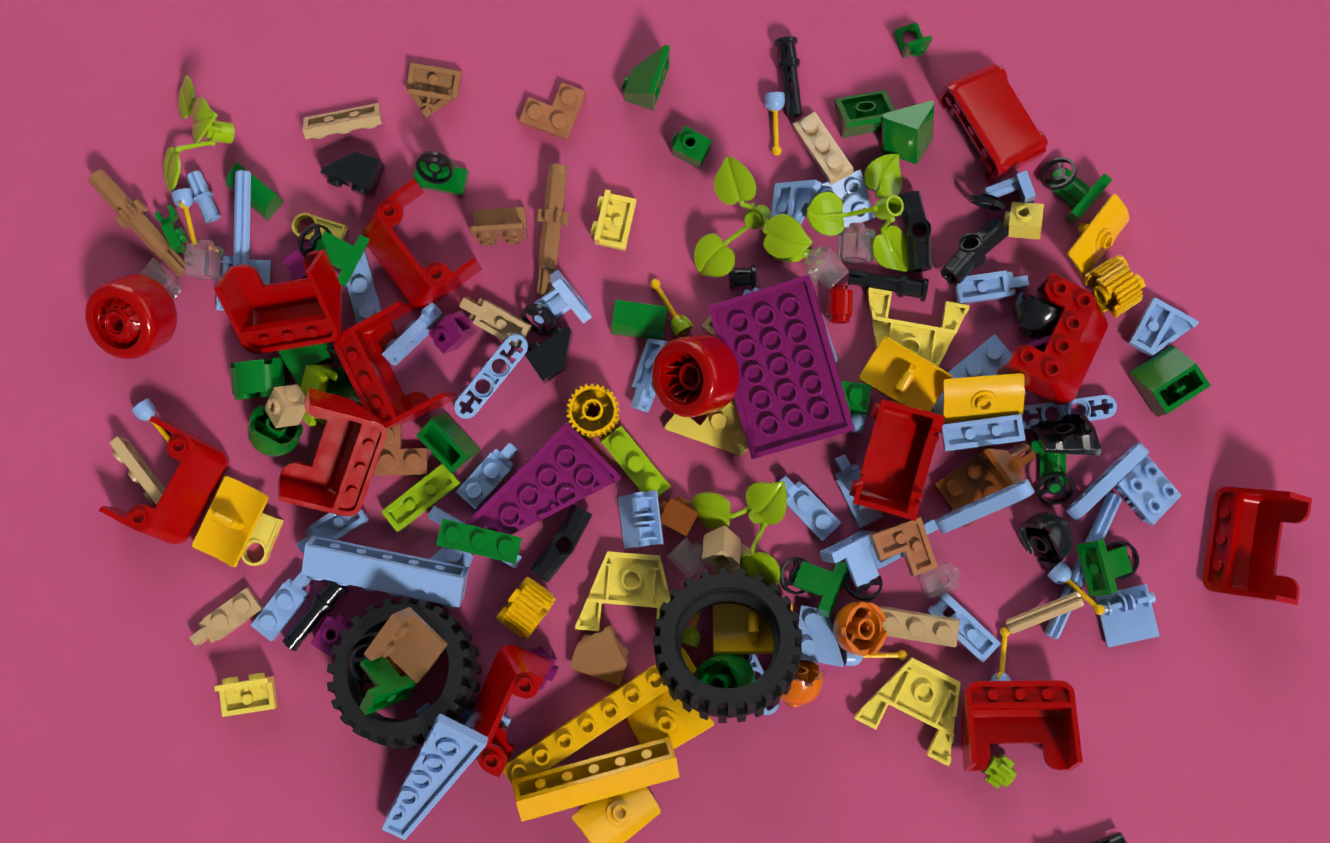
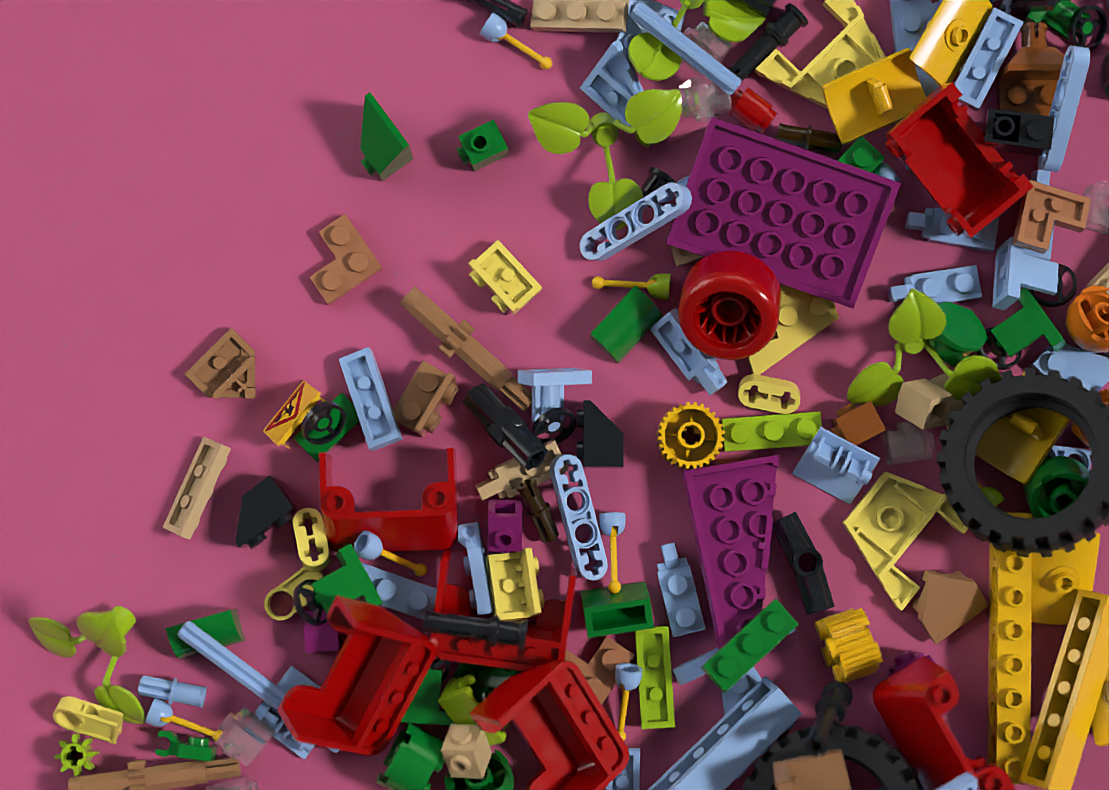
camera: 60 degrees left, 0 degrees up
(116, 169) = (73, 763): none -> lime gear
(149, 156) = (89, 719): none -> light yellow piece
(353, 212) = (303, 540): none -> light yellow beam
(371, 364) = (491, 630): none -> black pin
(377, 254) = (370, 547): none -> light blue hinge
(407, 479) = (627, 678): none -> light blue hinge
(417, 364) = (514, 585): none -> light yellow bracket
(423, 145) = (292, 413): none -> yellow piece
(471, 623) = (830, 711): none -> black pin
(475, 190) = (370, 399): none -> light blue plate
(477, 347) = (538, 510): none -> dark brown axle
(501, 402) = (613, 525): none -> hinge
(516, 287) = (505, 427): none -> black piece
(658, 444) = (769, 394): none -> light yellow beam
(710, 273) = (633, 218): none -> light blue beam
(785, 539) = (960, 336): none -> green hat
(846, 229) = (685, 48): none -> light blue axle
(847, 353) = (809, 138): none -> dark brown axle
(947, 486) = (1019, 132): none -> black slope

